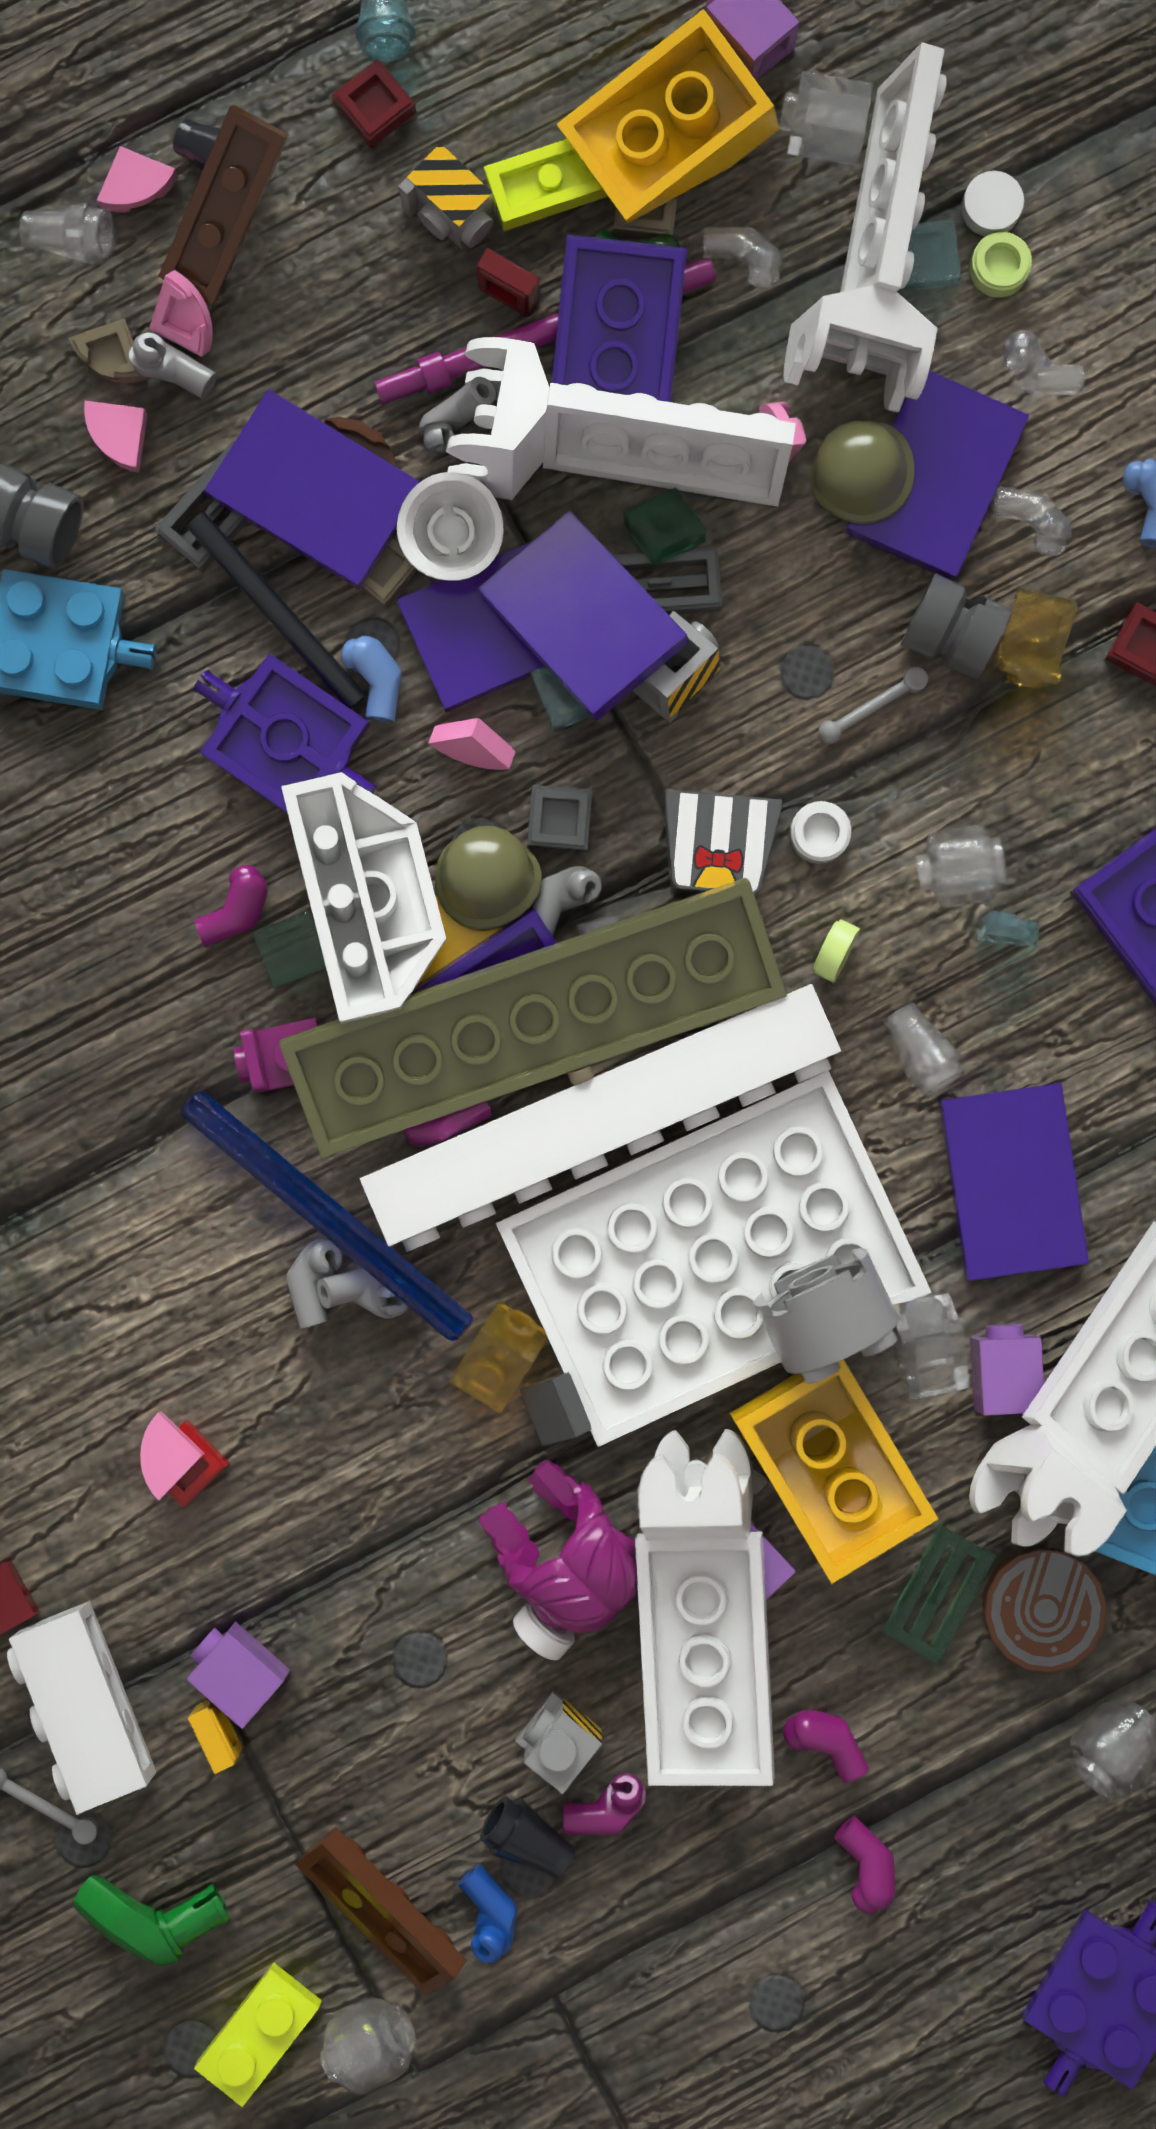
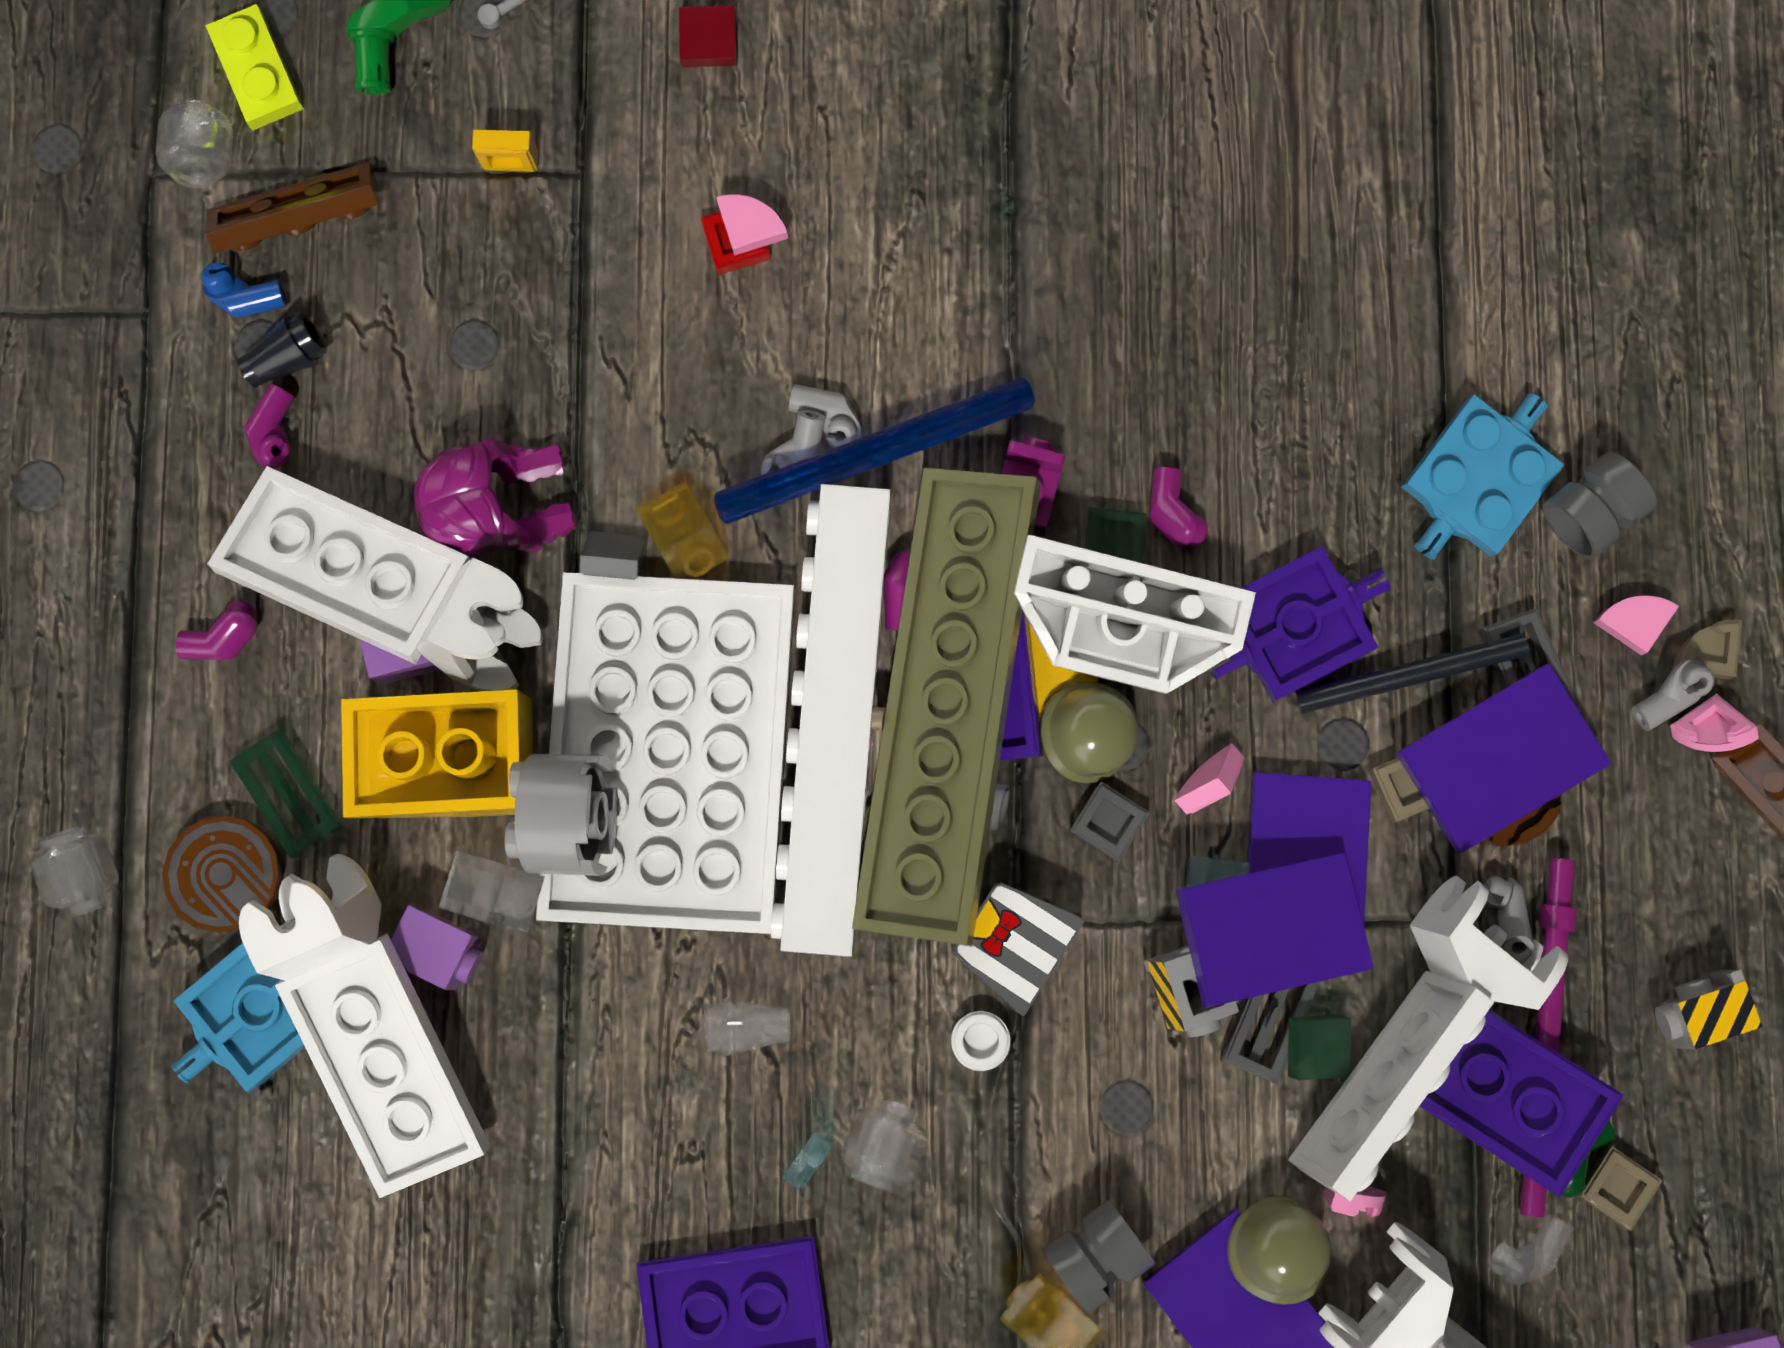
camera: 125 degrees right, 5 degrees down
(80, 1708) = (585, 58): white brick -> none
(236, 1673) = (544, 191): medium lavender brick -> none
(380, 671) = (1315, 734): medium blue arm -> none
(450, 526) = (1410, 855): white helmet -> none
(508, 283) = (1606, 1024): dark red tile -> none
(540, 184) = (1683, 1112): neon yellow plate -> none
(540, 1637) = (432, 442): white tile -> none
(559, 1741) = (343, 416): light grey brick -> none
(565, 891) = (1044, 791): light grey arm -> none
(671, 120) = (1685, 1245): yellow slope -> none
(835, 950) = (870, 997): yellowish green tile -> none
(876, 1866) = (97, 621): magenta arm -> none
(913, 681) = (1070, 1196): light grey hinge -> none
(1013, 1182) = (591, 1045): dark purple tile -> none

